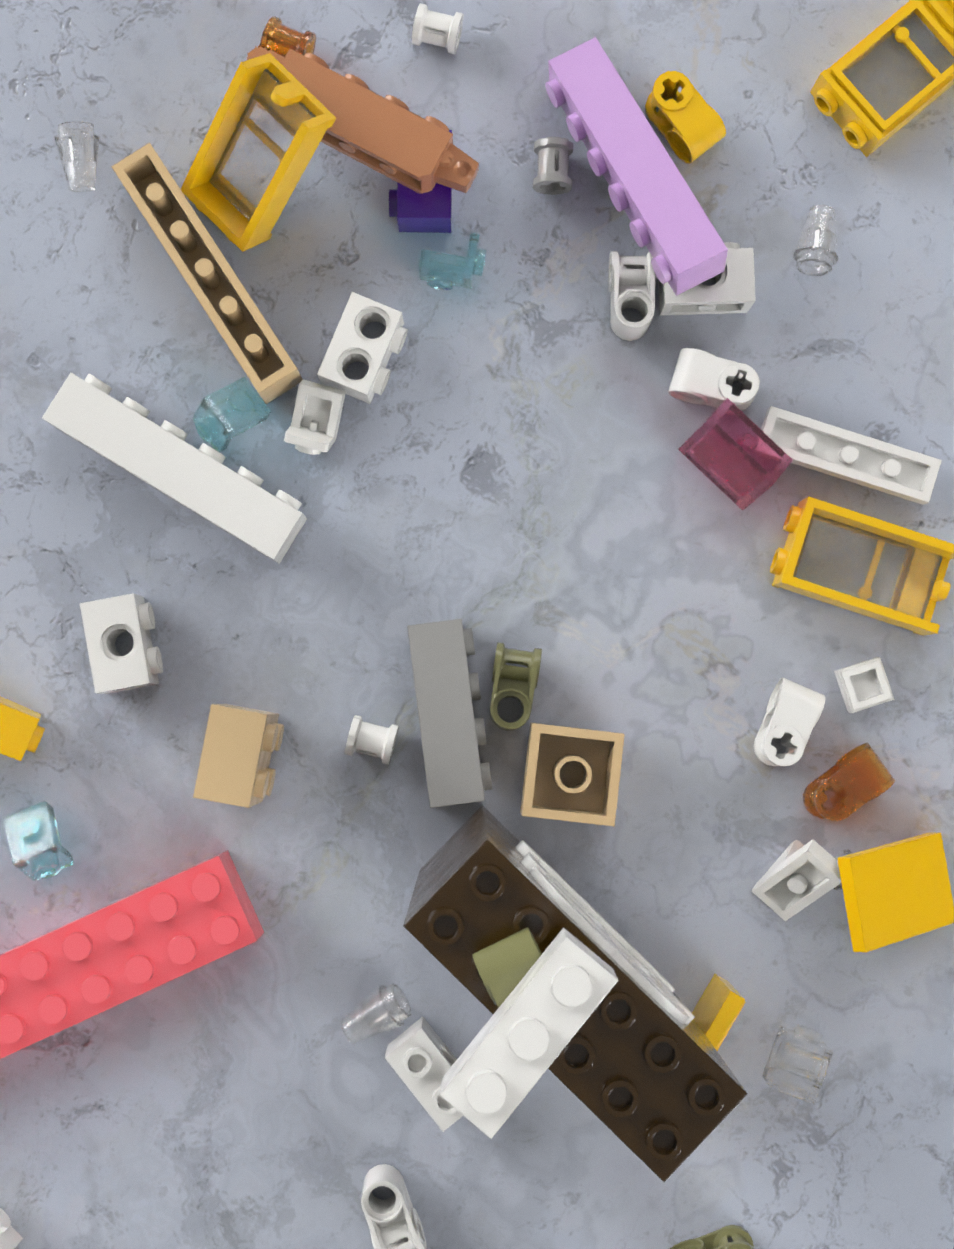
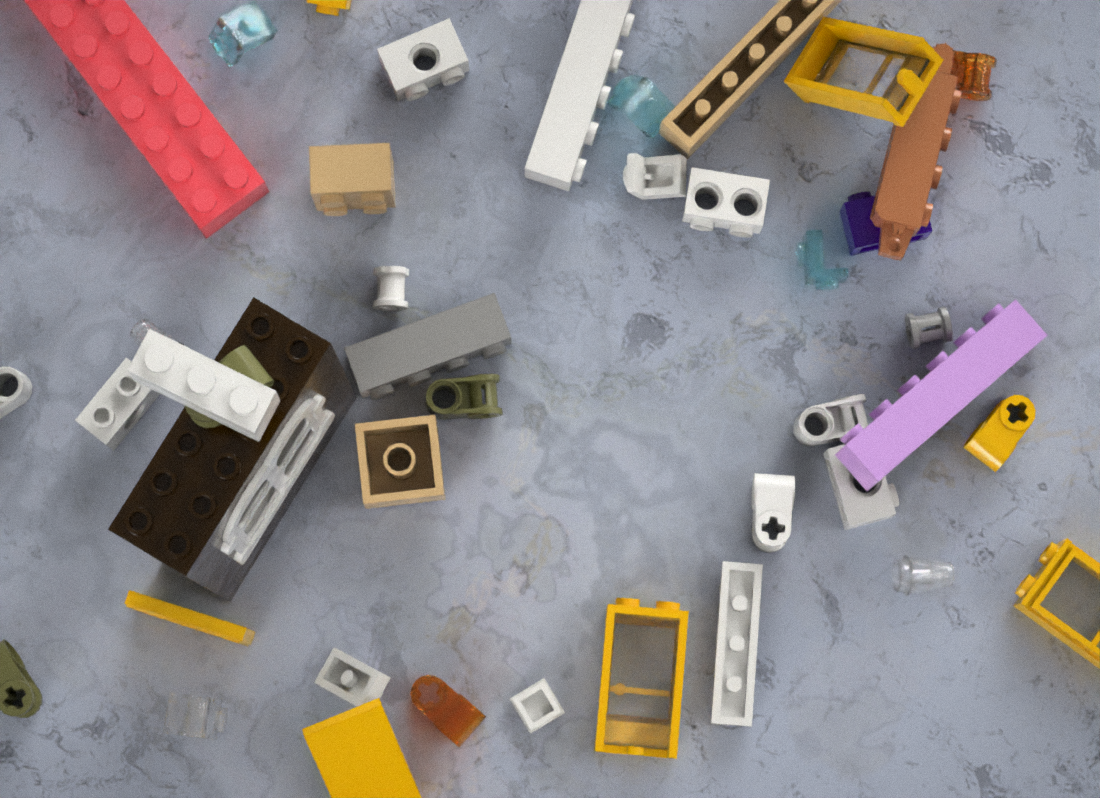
camera: 80 degrees right, 5 degrees down
(437, 28) = (1024, 200): white bush -> none
(735, 454) = (710, 540): clear pink brick -> none
(788, 716) = (495, 644): white piece -> none

